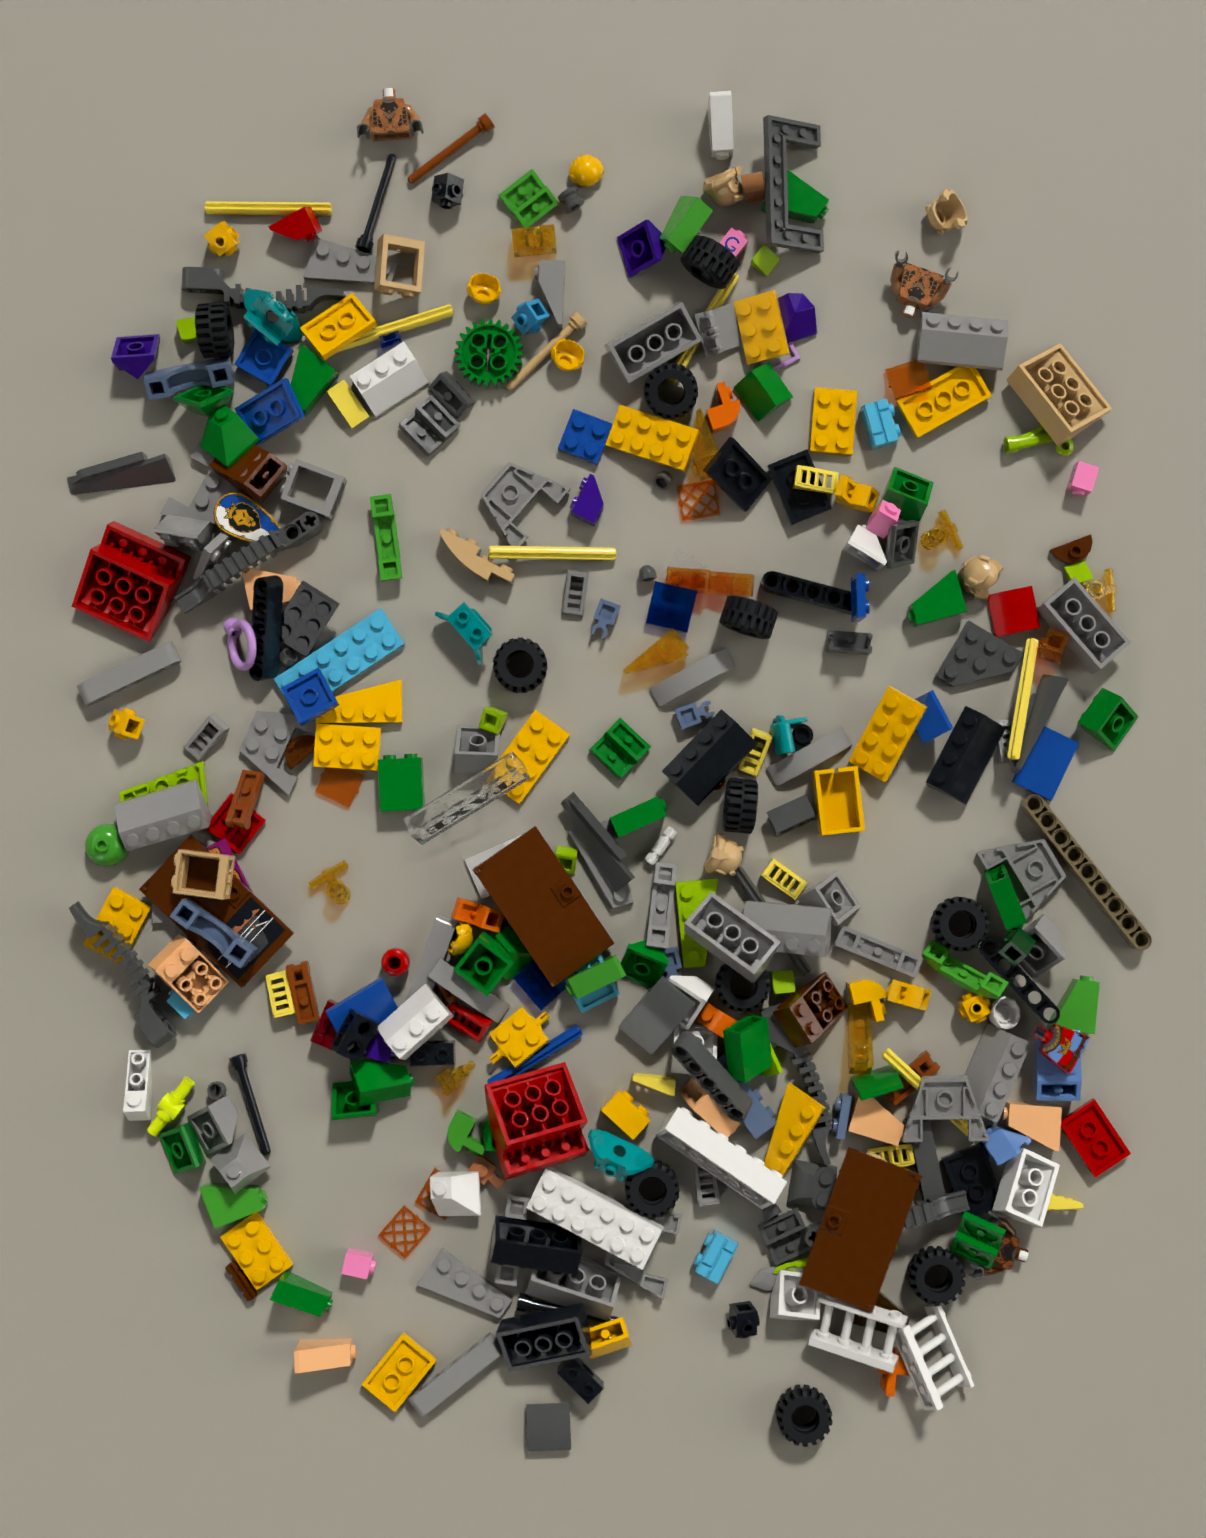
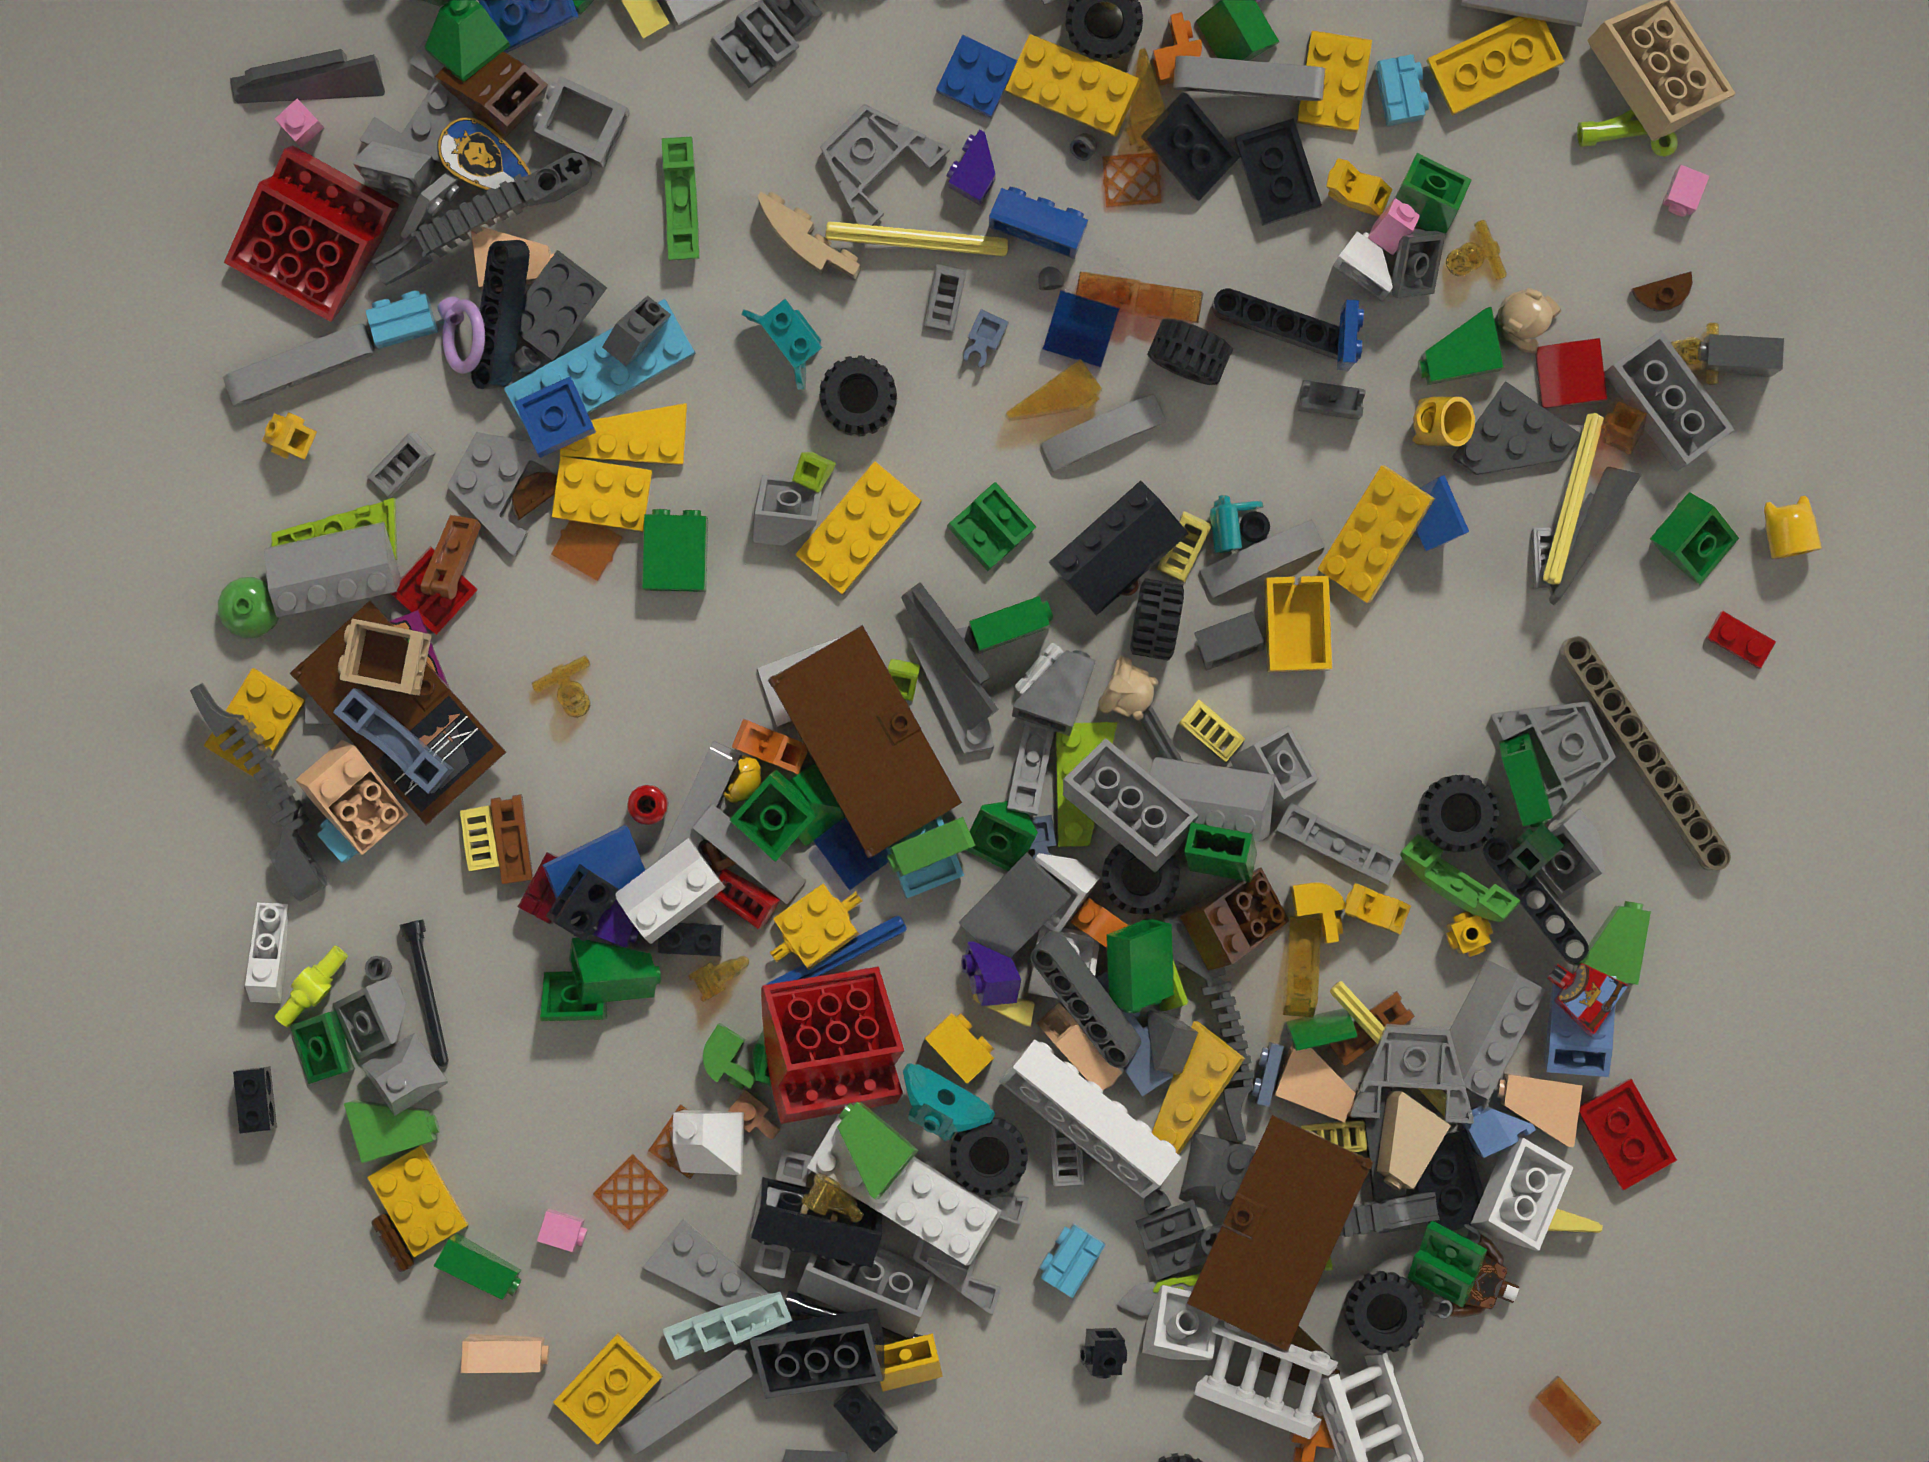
camera: 10 degrees right, 0 degrees up
(116, 505) = (299, 123): none -> bright pink brick
(137, 1189) = (255, 1099): none -> black brick
(198, 636) = (401, 319): none -> medium azure brick
(362, 632) = (636, 330): none -> dark grey slope
(466, 798) = (767, 579): clear brick -> none
(479, 1320) = (727, 1324): none -> light aqua slope
(542, 1226) = (828, 1195): none -> clear yellow piece
(572, 1192) = (874, 1147): none -> bright green slope
(635, 534) = (1038, 221): none -> blue slope
(644, 1062) = (991, 975): none -> dark purple slope
(675, 862) = (1057, 693): none -> dark grey slope
(690, 715) = (1096, 486): sand blue plate -> none
(772, 1099) = (1170, 1041): none -> dark grey slope
(774, 423) = (1249, 78): none -> light grey beam
(783, 981) = (1197, 882): lime slope -> none
(798, 965) = (1220, 852): none -> green brick
(809, 487) = (1288, 171): light yellow slope -> none
(908, 379) = (1446, 29): clear orange piece -> none
(928, 652) = (1443, 421): none -> yellow piece
(943, 1156) = (1407, 1140): none -> tan slope
(965, 755) = (1485, 573): black slope -> none
(1004, 1013) = (1512, 945): white hair -> none
(1046, 763) = (1600, 594): blue tile -> none
(1069, 1333) = (1568, 1409): none -> clear orange plate
(1079, 571) = (1670, 323): lime slope -> none
(1132, 589) = (1742, 354): none -> dark grey slope
(1145, 787) = (1740, 639): none -> red plate
(1175, 707) = (1791, 529): none -> yellow piece

